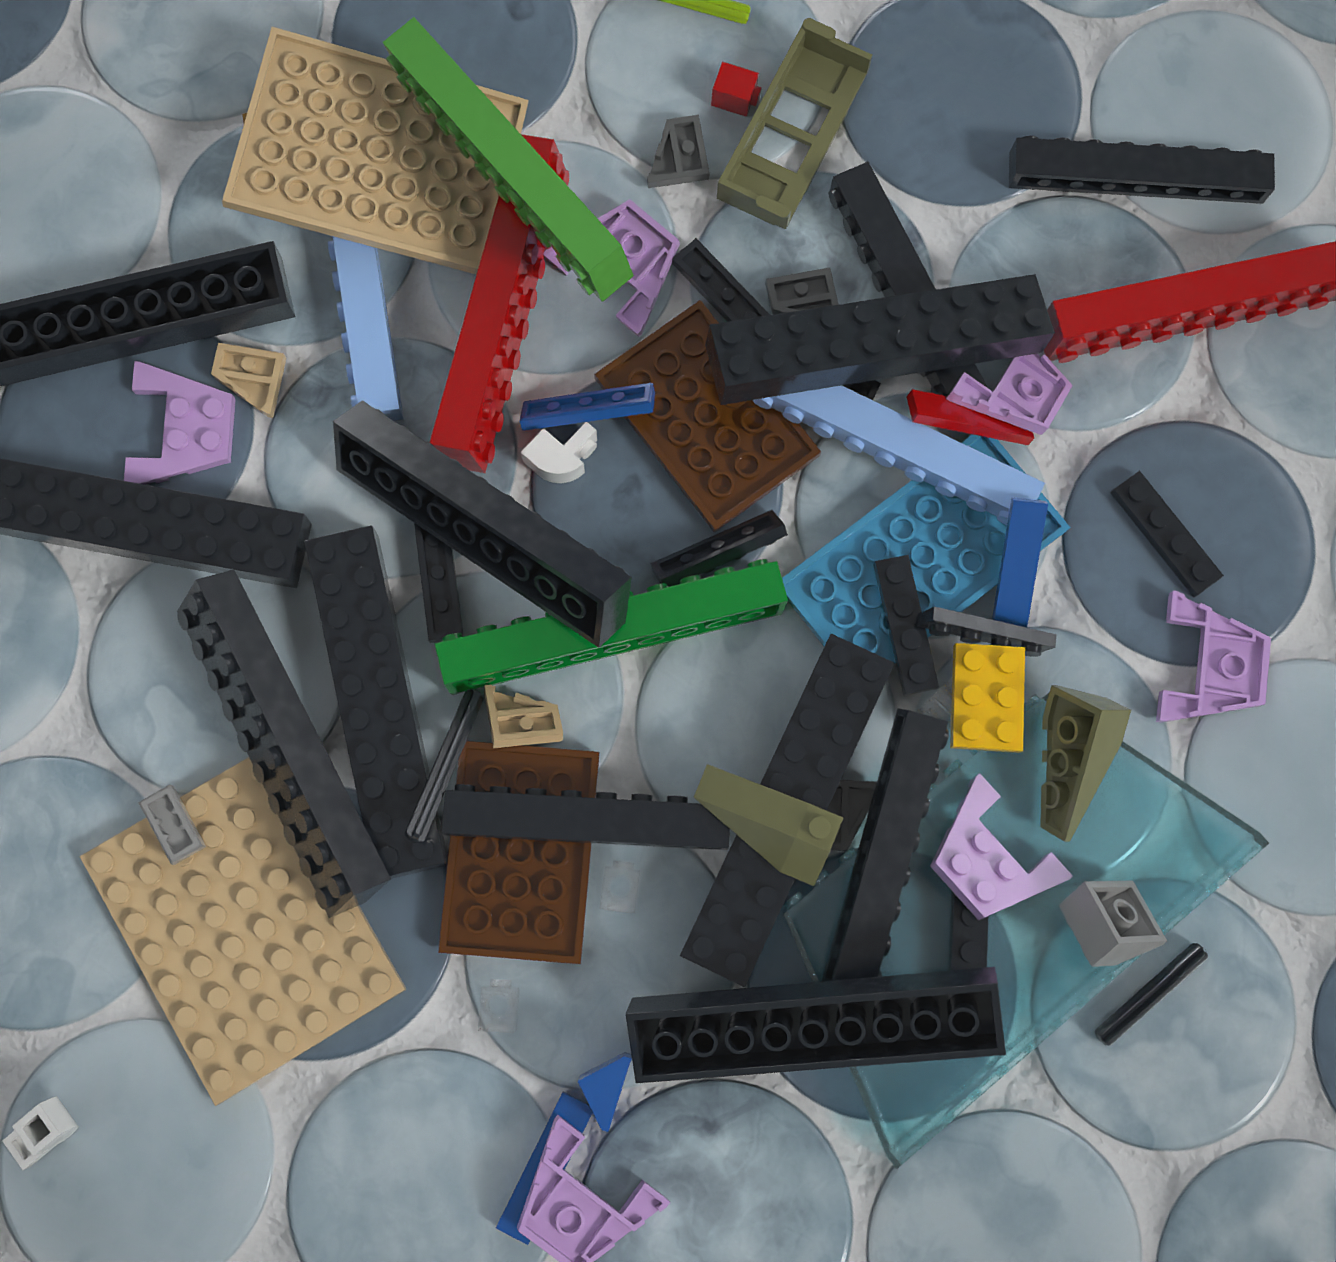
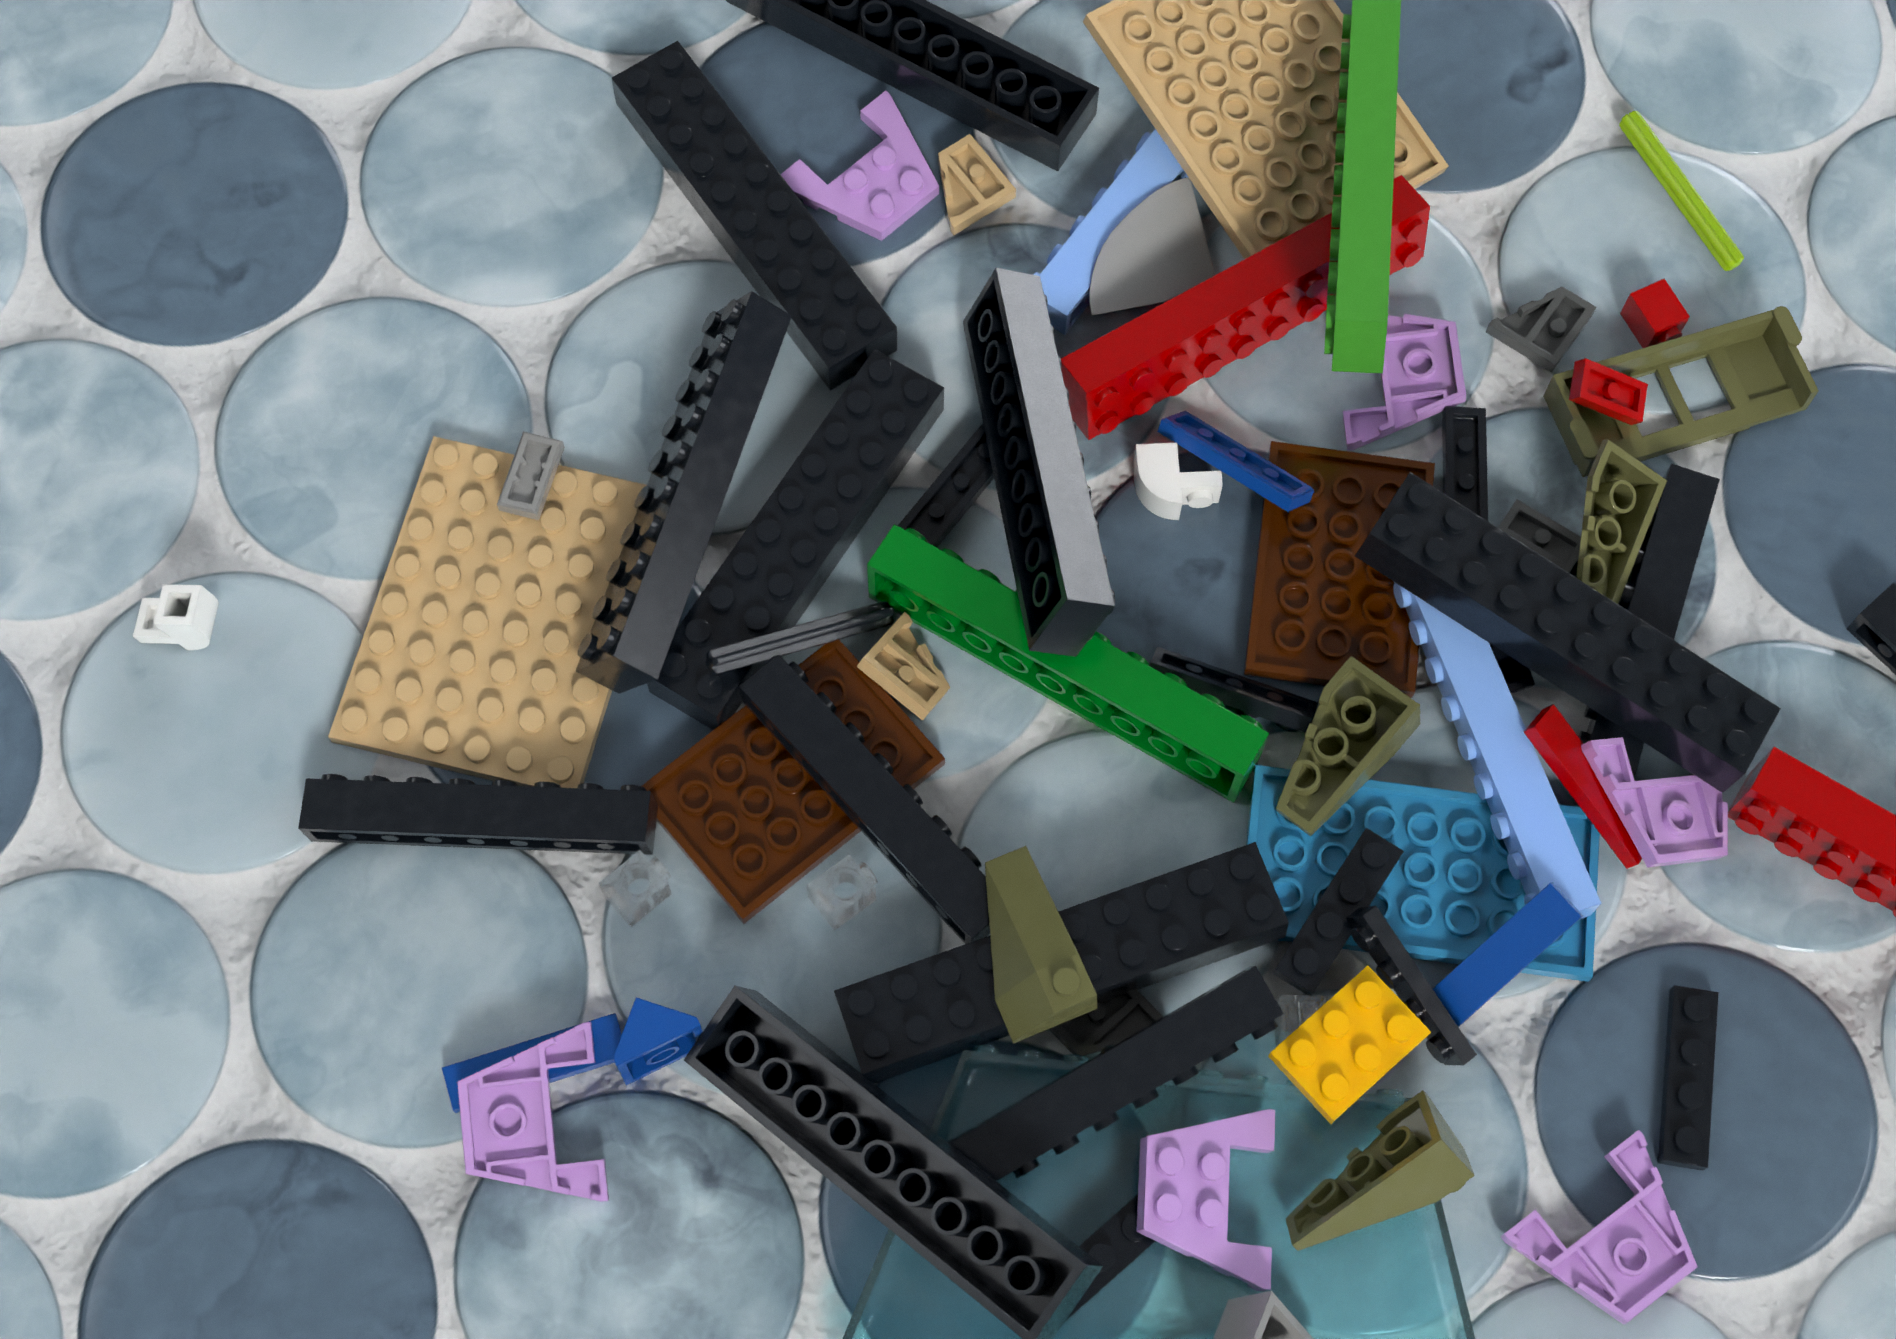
camera: 50 degrees right, 10 degrees down
(360, 1064) = (479, 815): none -> black brick
(410, 318) = (1152, 253): none -> light grey sticker
(757, 163) = (1608, 391): none -> red plate
(814, 516) = (1350, 738): none -> olive wedge
(837, 243) = (1615, 518): none -> olive wedge

